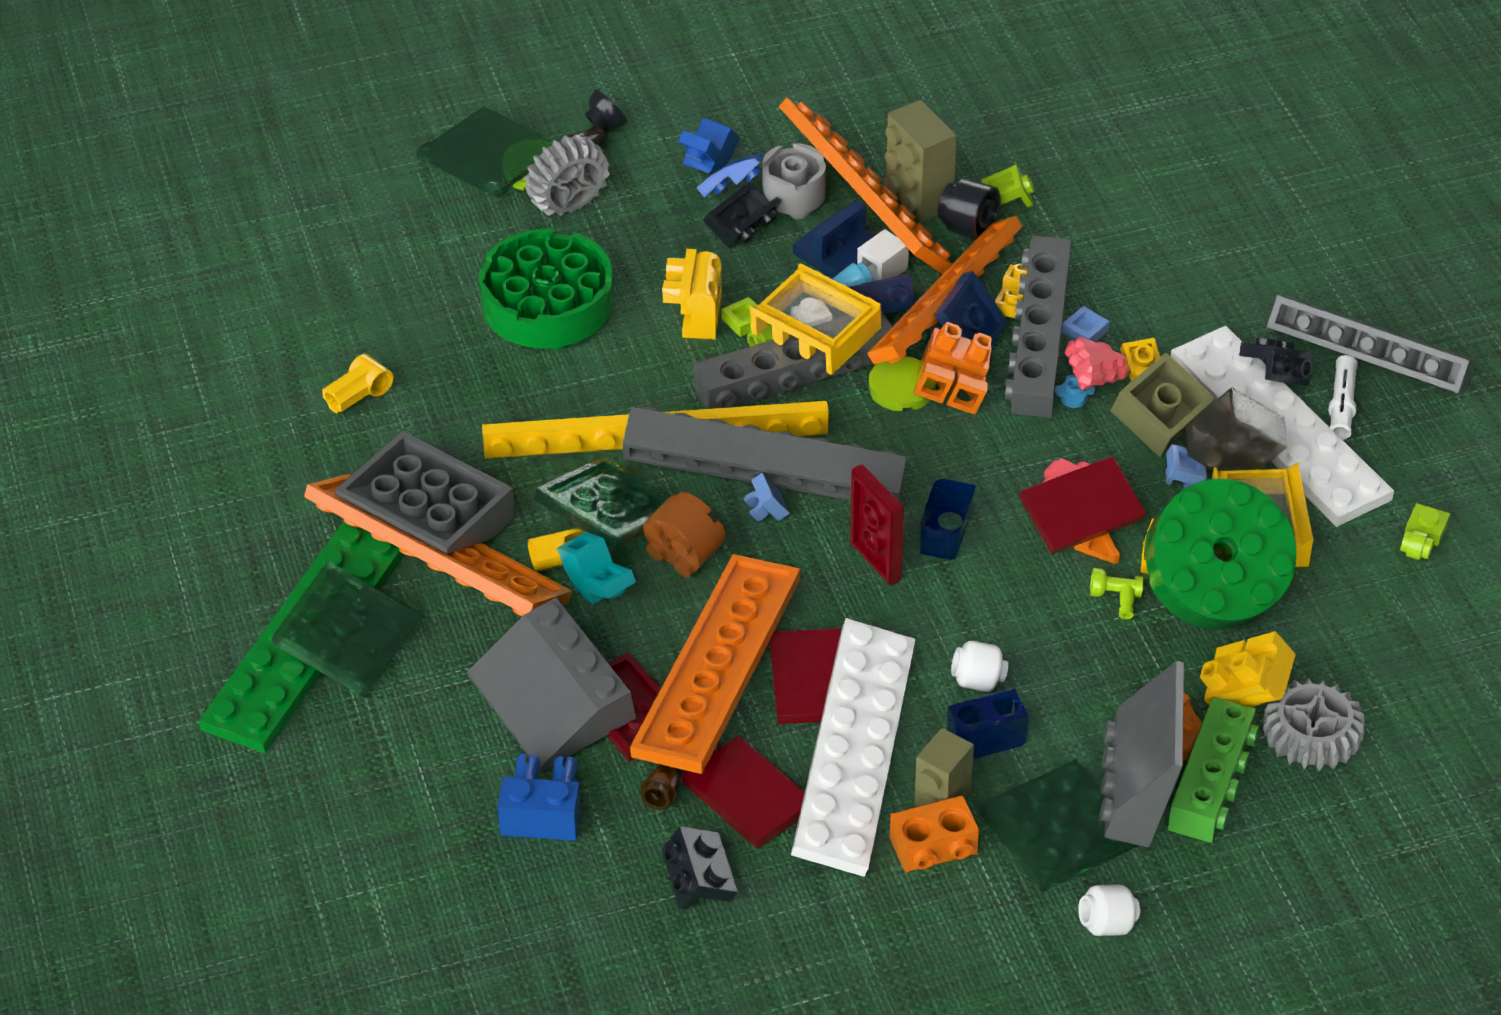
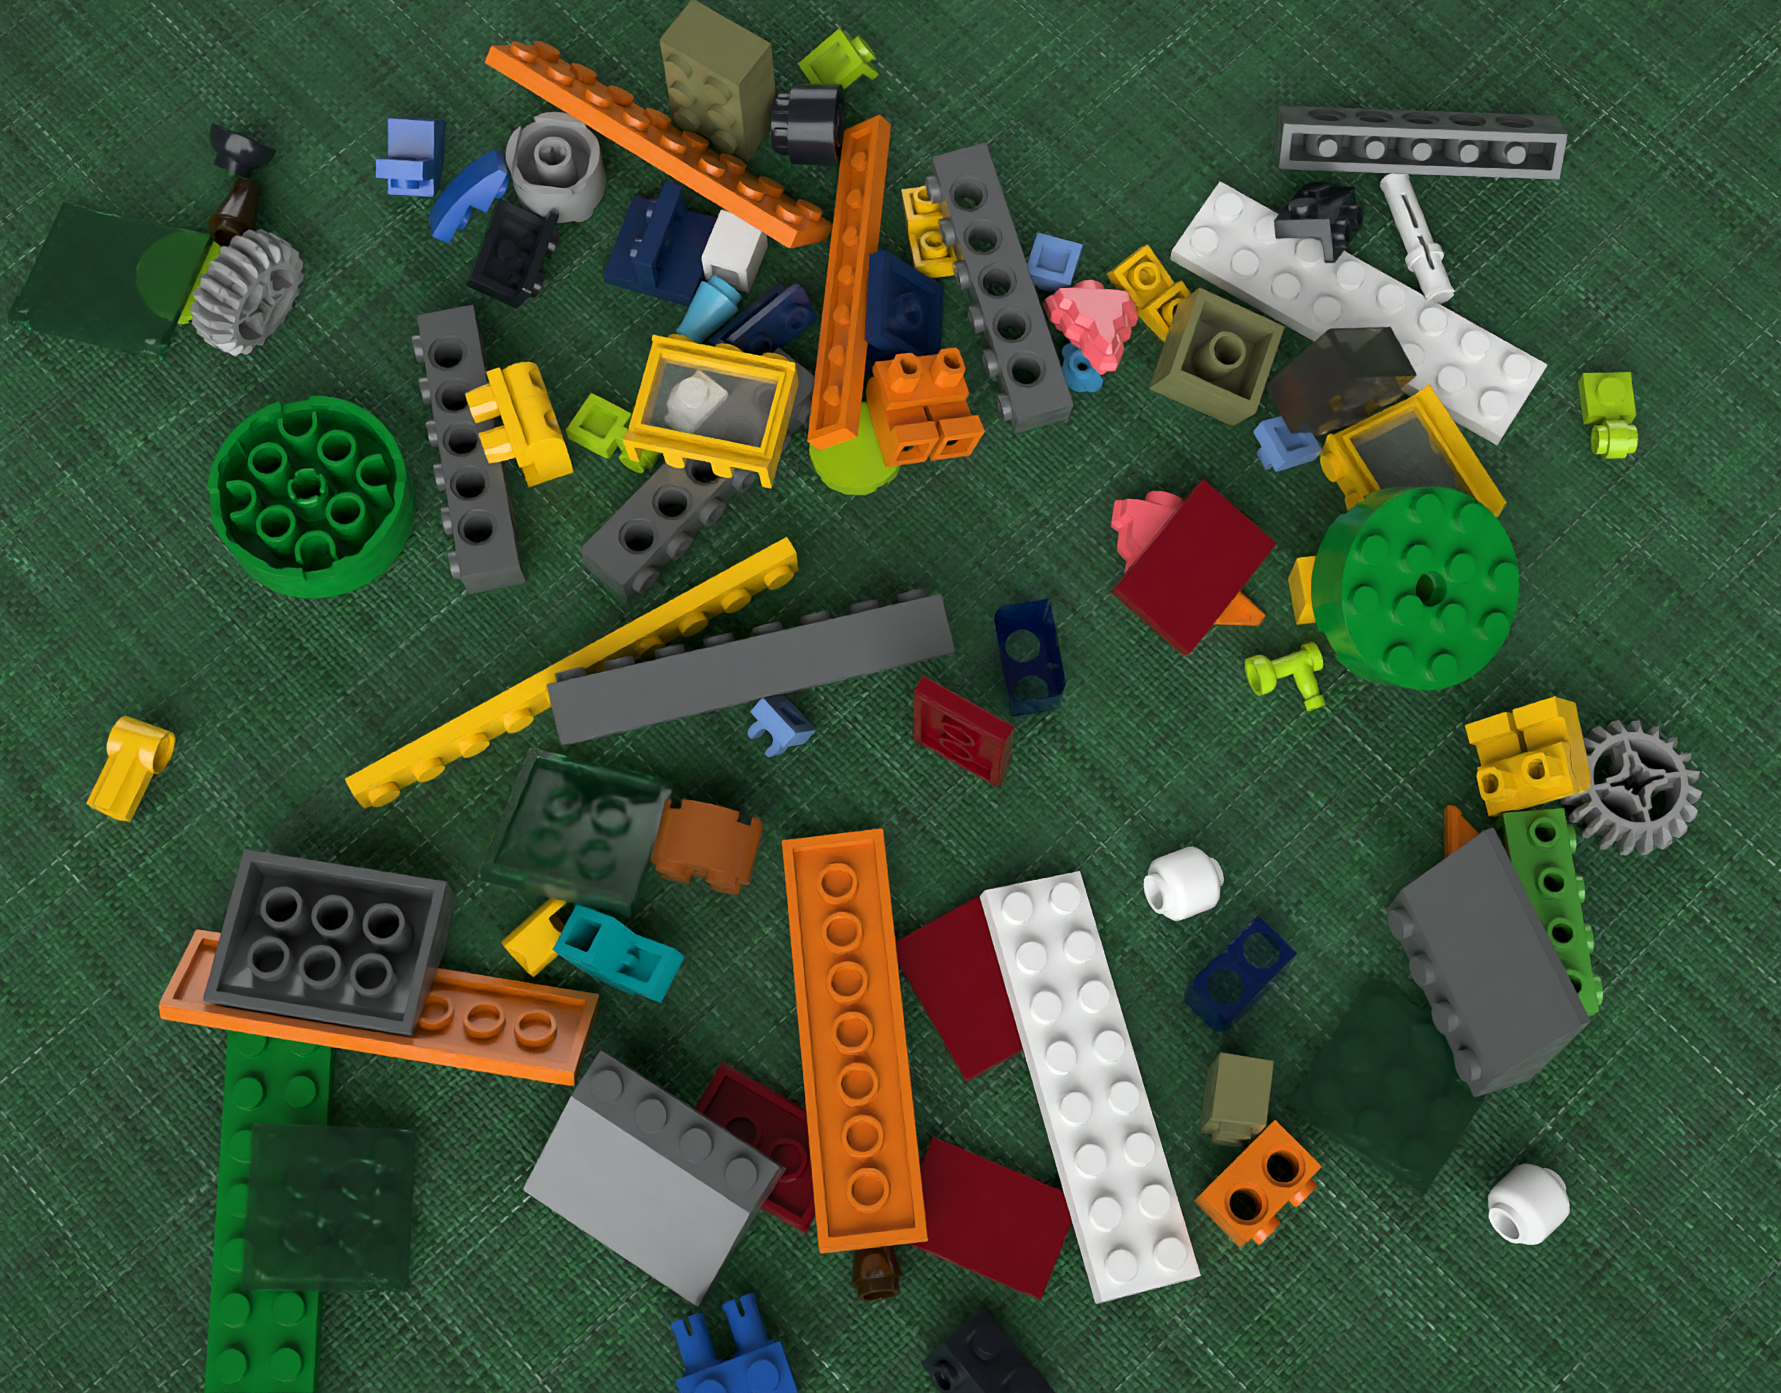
camera: 25 degrees left, 25 degrees up
(648, 319) = (497, 560): none -> dark grey brick

